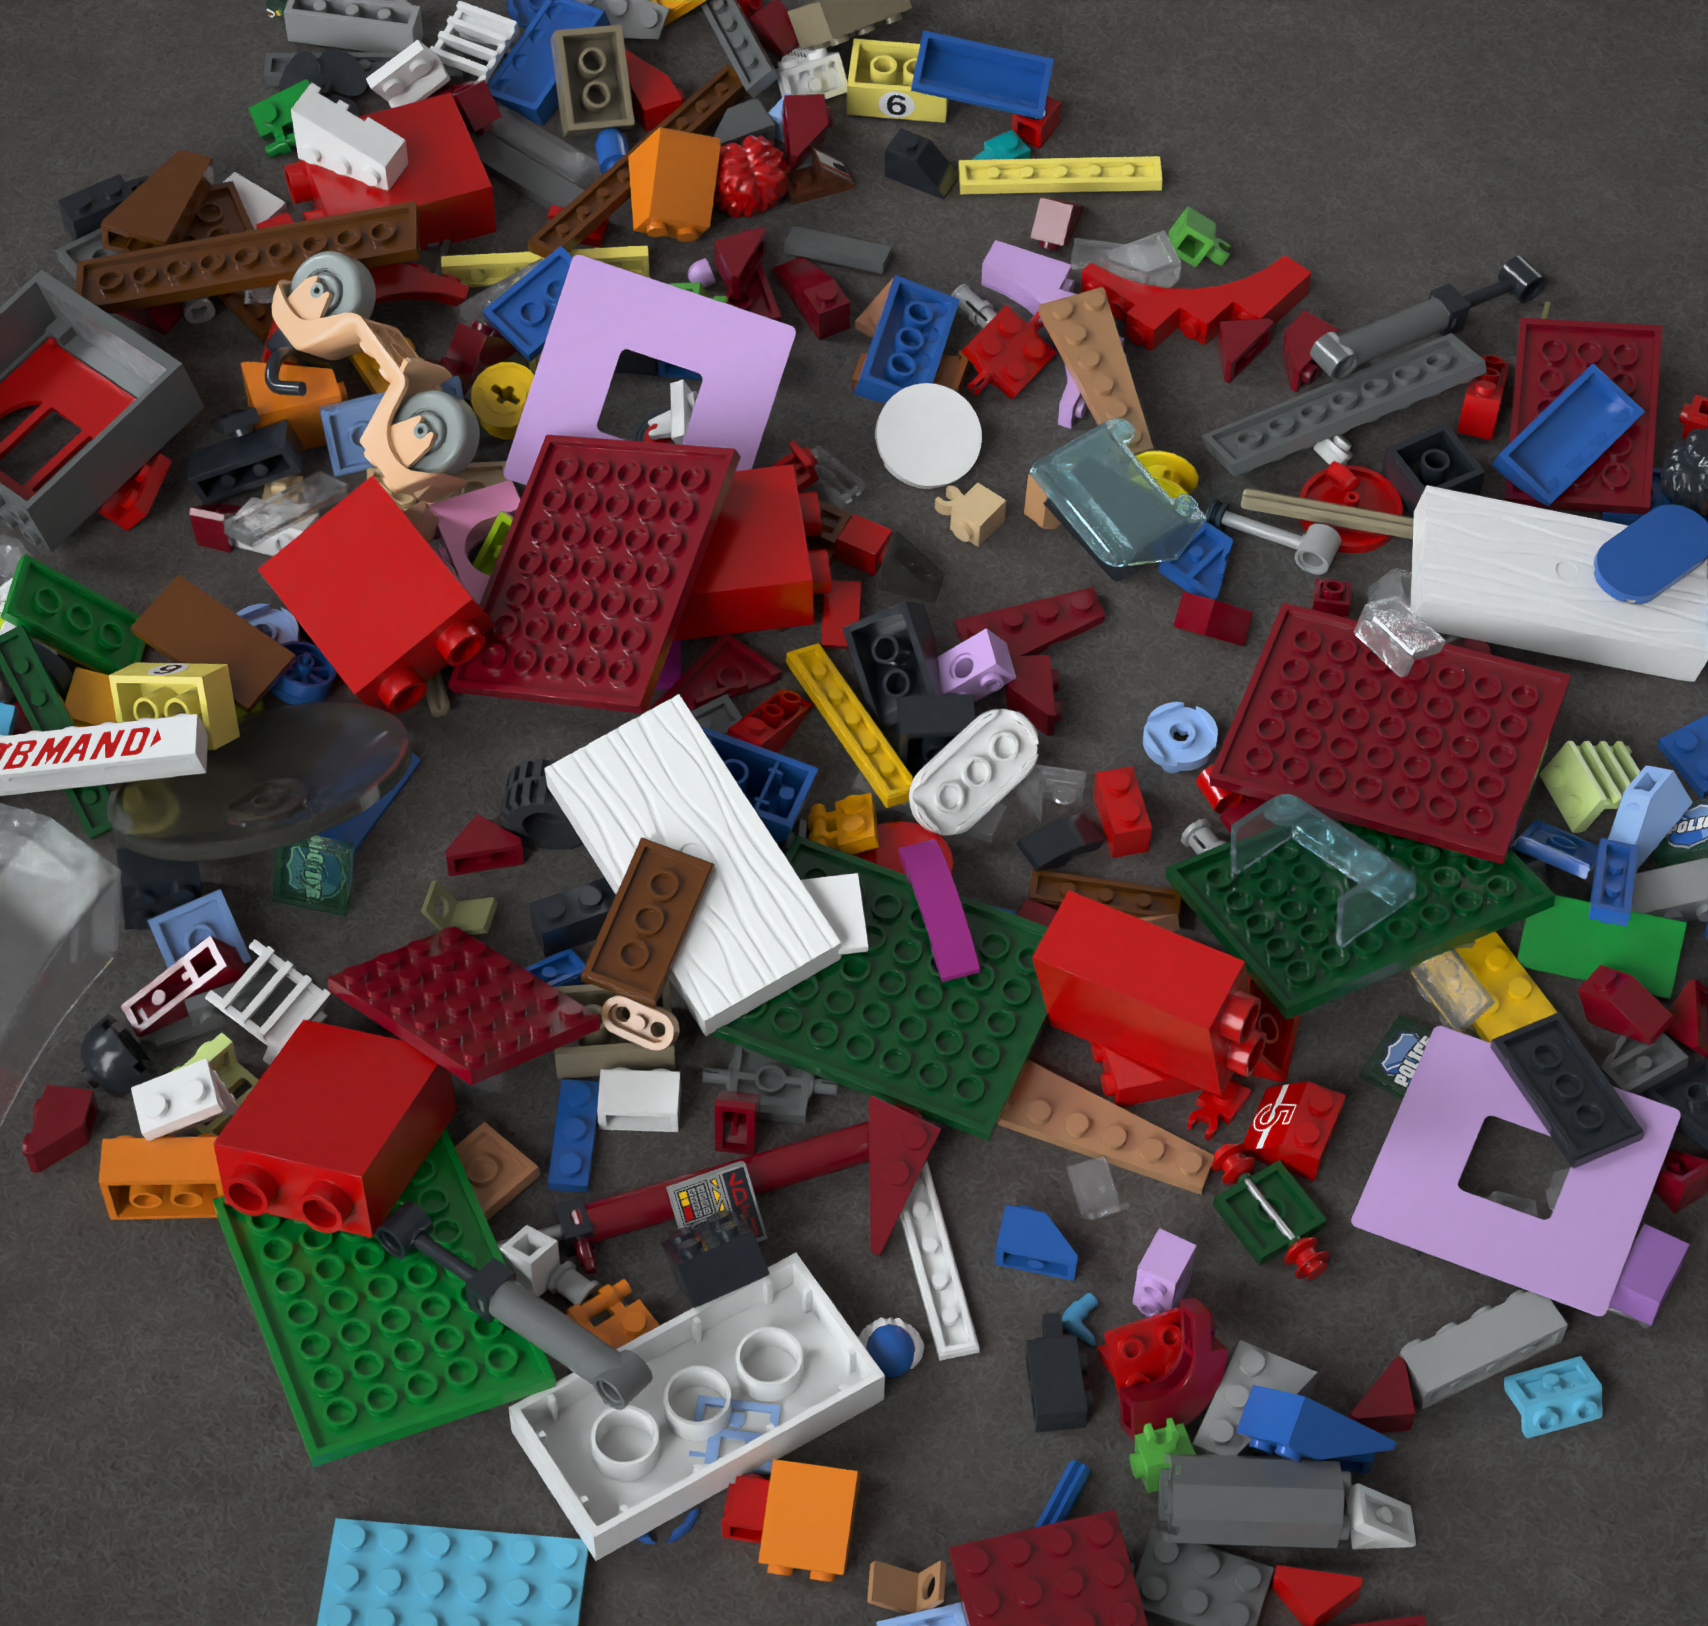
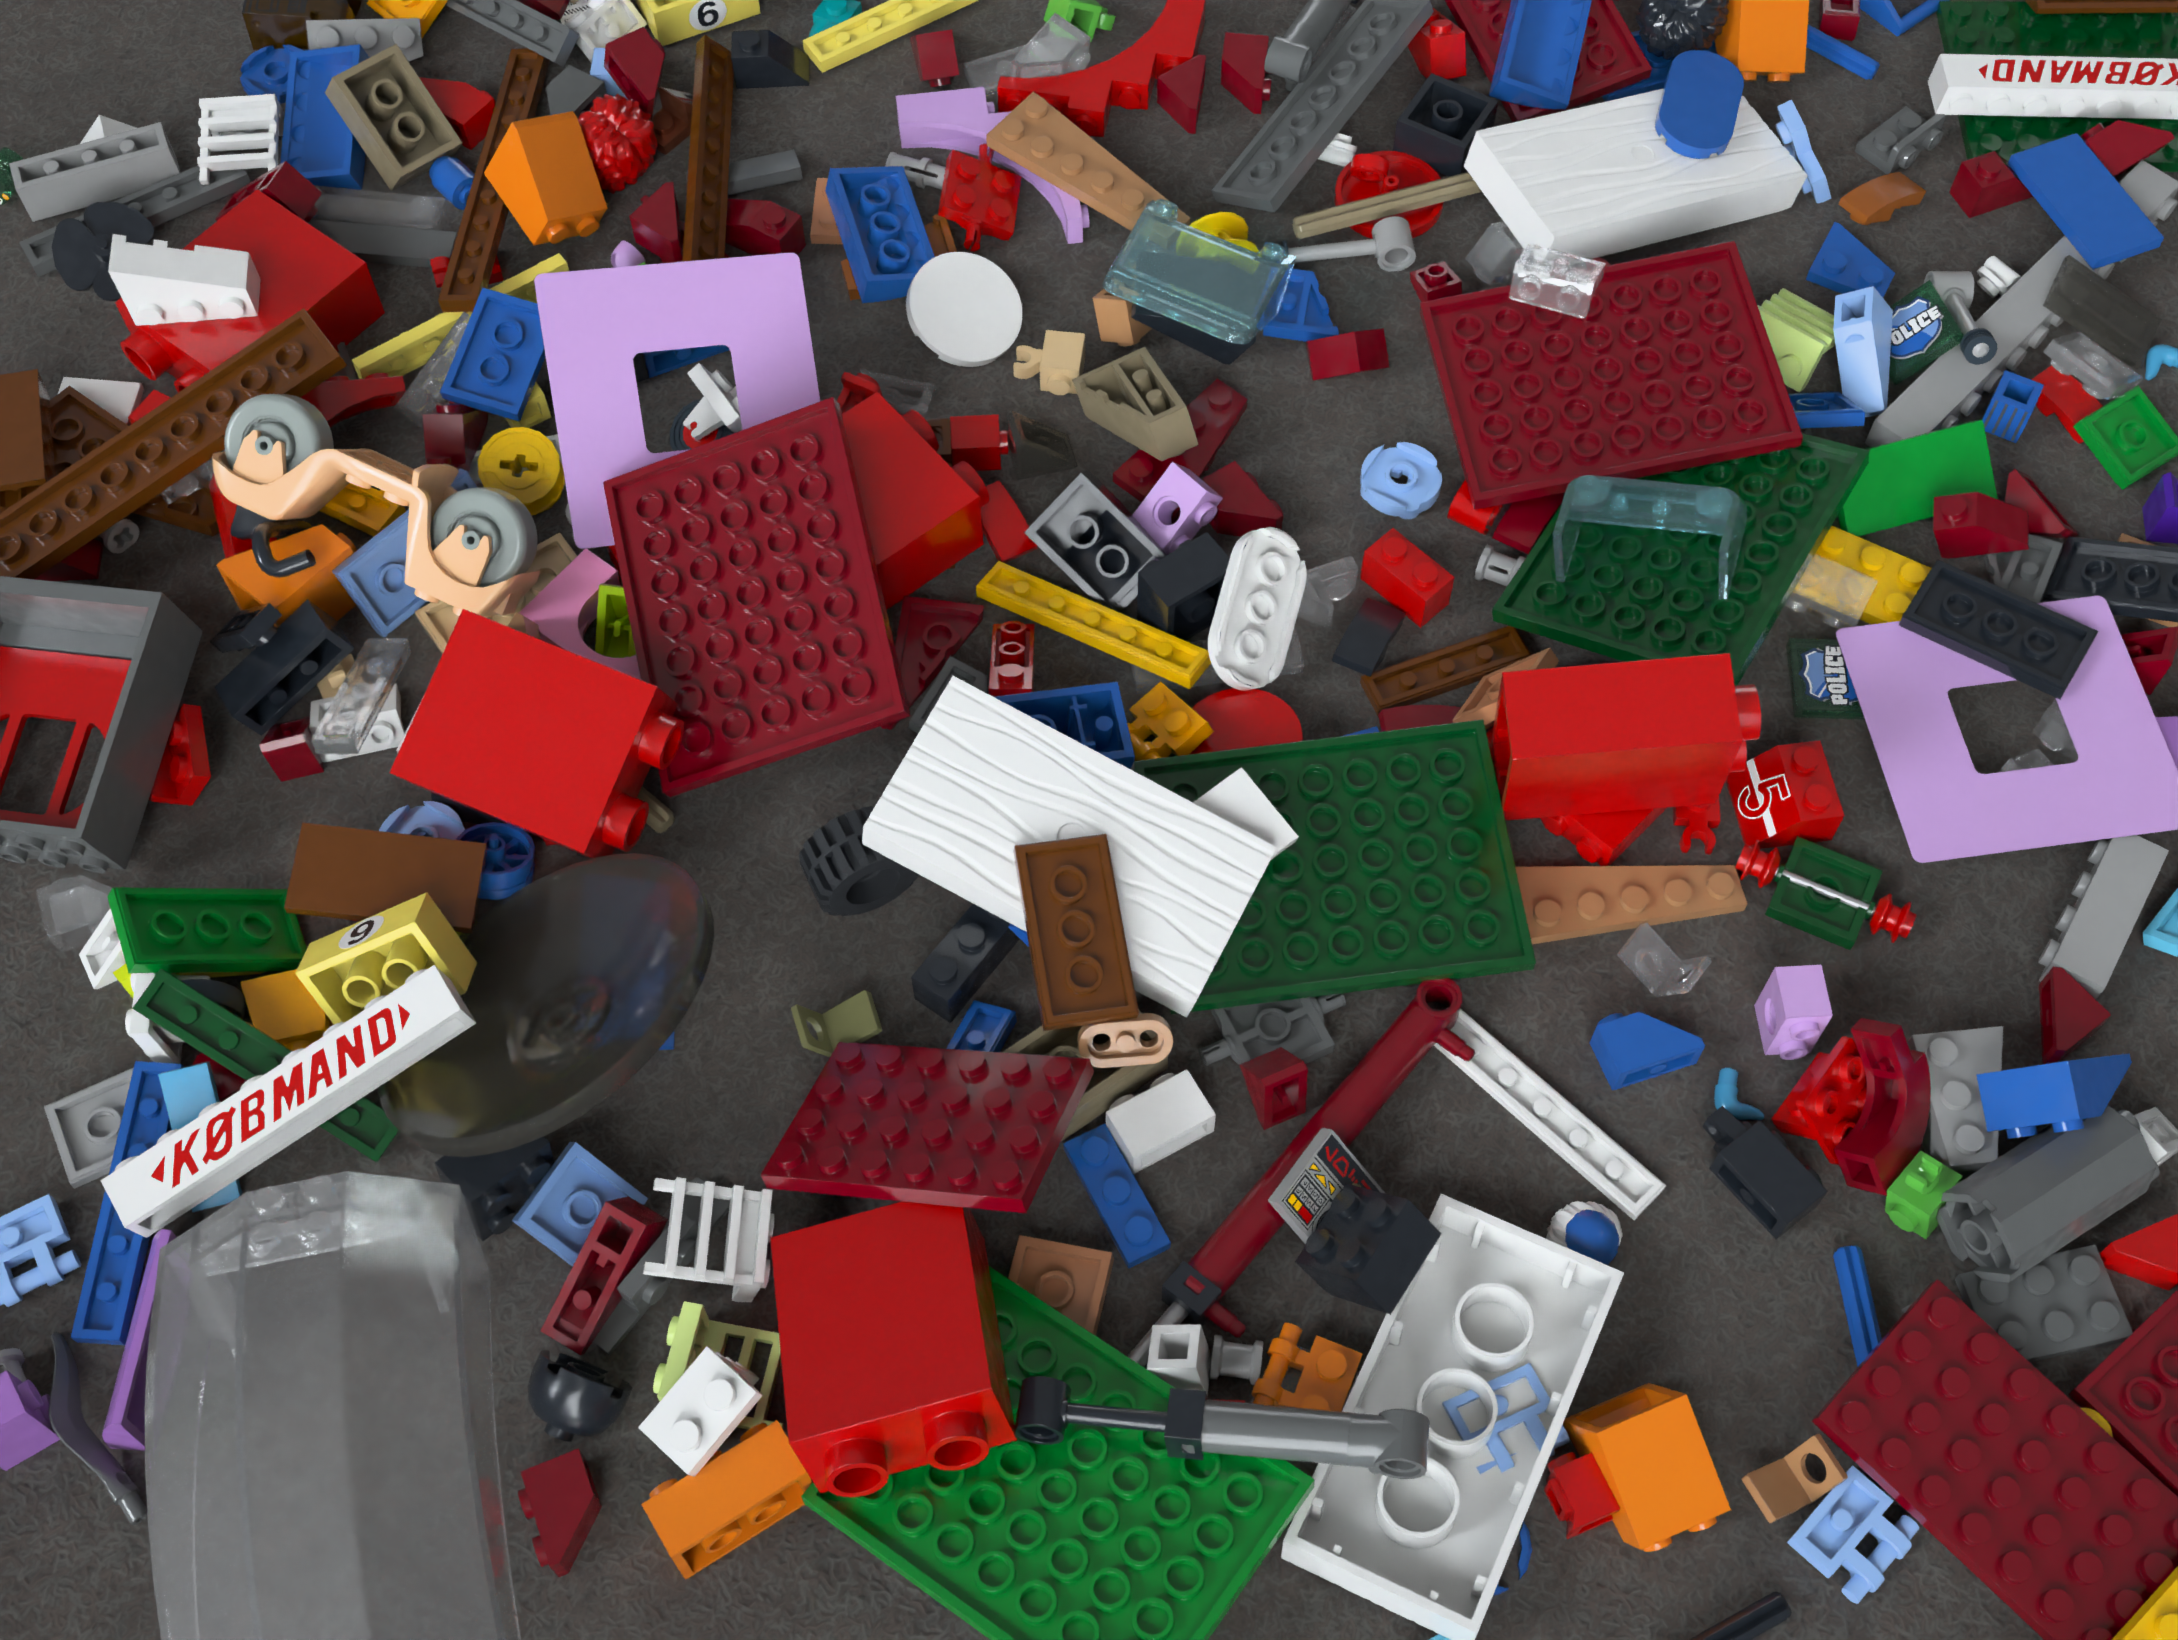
camera: 30 degrees left, 5 degrees up
(275, 117) = (79, 292): green plate -> none
(315, 874) = (670, 1077): tile -> none
(409, 76) = (194, 197): white bracket -> none
(482, 848) = (815, 941): dark red slope -> none
(811, 222) = (709, 153): none -> reddish brown plate
(896, 1157) = (1461, 1032): dark red wing -> none
(940, 909) = (1333, 757): magenta slope -> none
(1006, 574) = (1137, 405): none -> dark tan wedge
(1613, 882) = (1899, 414): blue plate -> none

